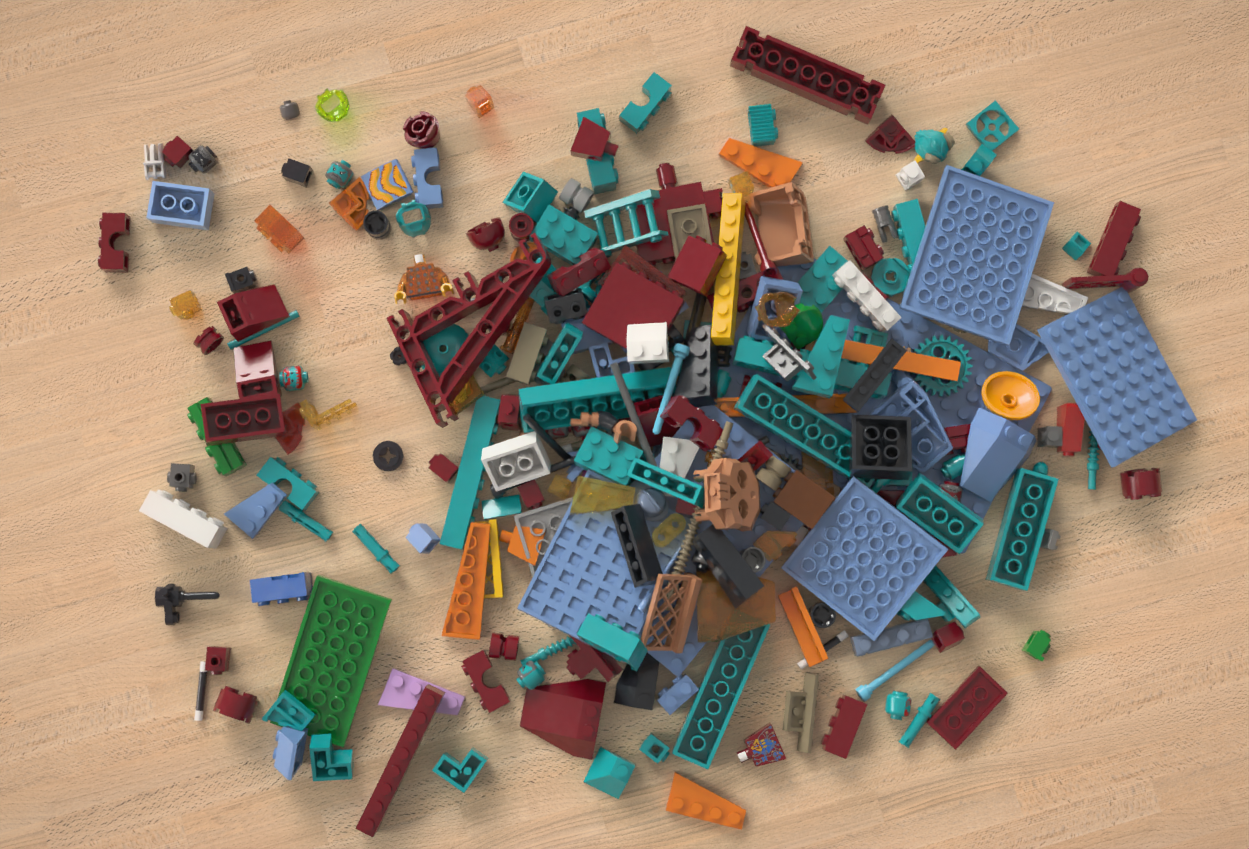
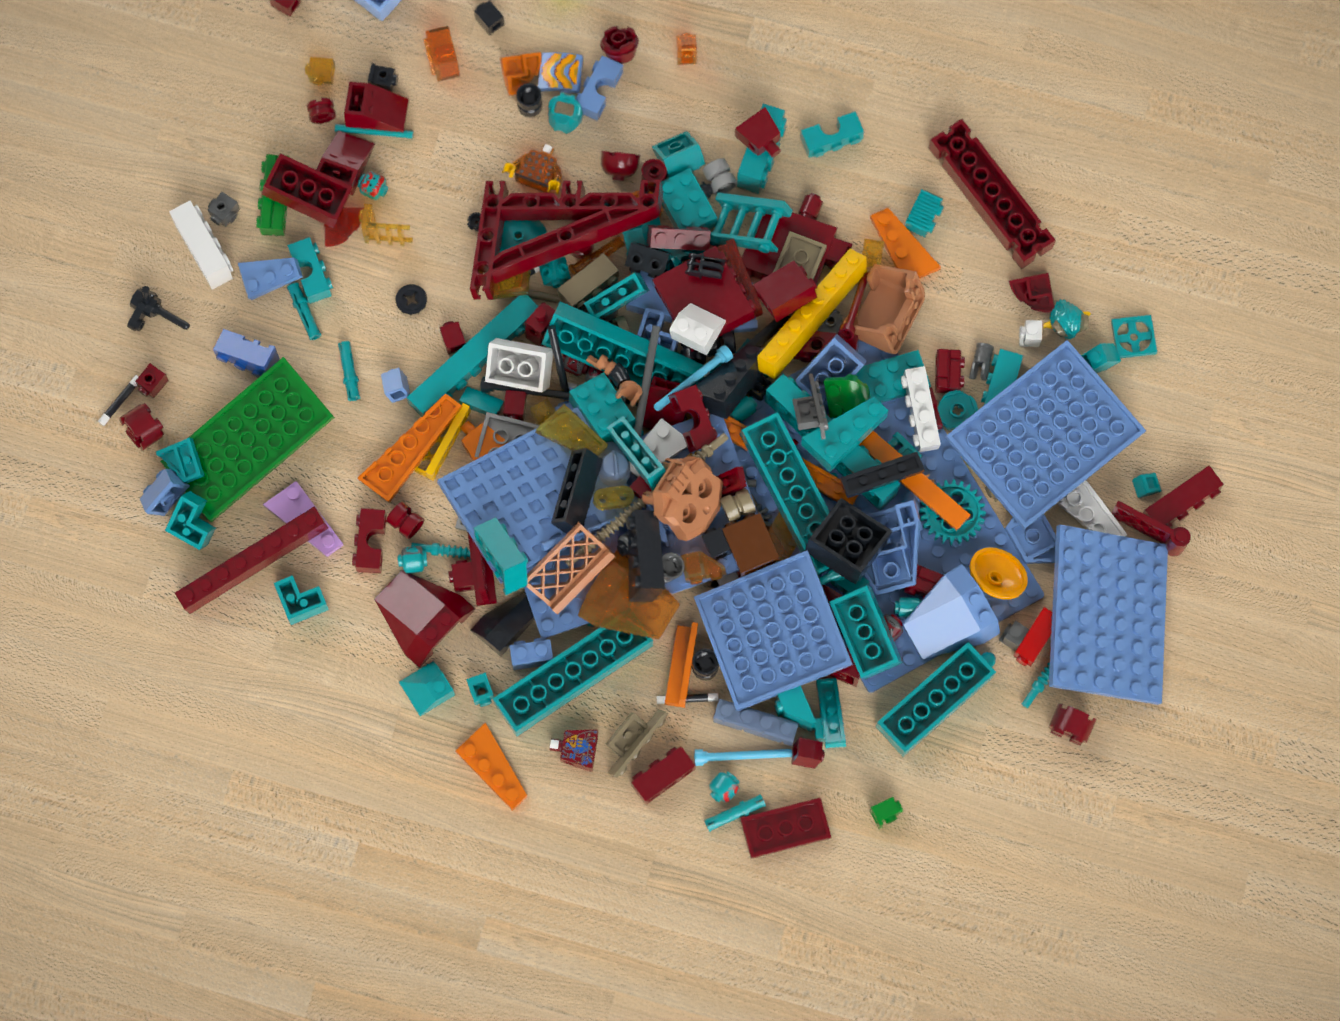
camera: 35 degrees right, 10 degrees down
(339, 174) = (524, 39): head -> none
(621, 286) = (707, 267): none -> black arm
(784, 307) = (839, 367): clear orange helmet -> none
(1049, 539) = (954, 724): light grey tile -> none

